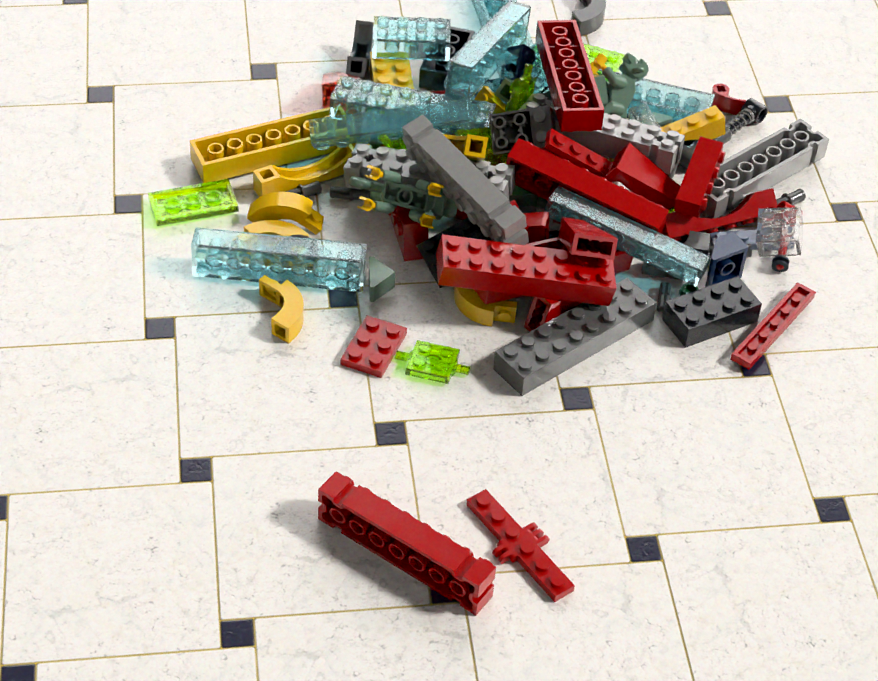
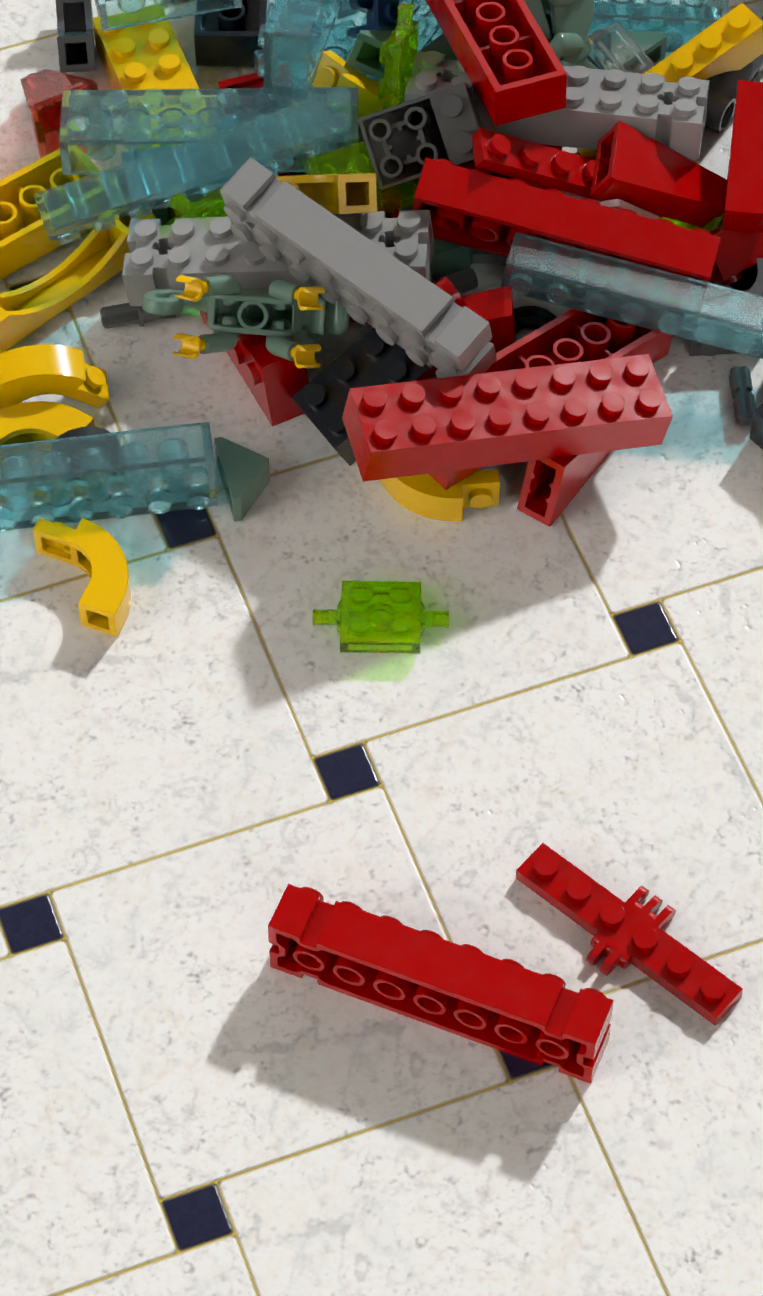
camera: 10 degrees left, 10 degrees up
(307, 190) = (54, 328): dark grey axle -> none
(373, 346) = (269, 609): plate -> none
(572, 338) = (609, 517): dark grey brick -> none
(586, 240) = (596, 334): red slope -> none

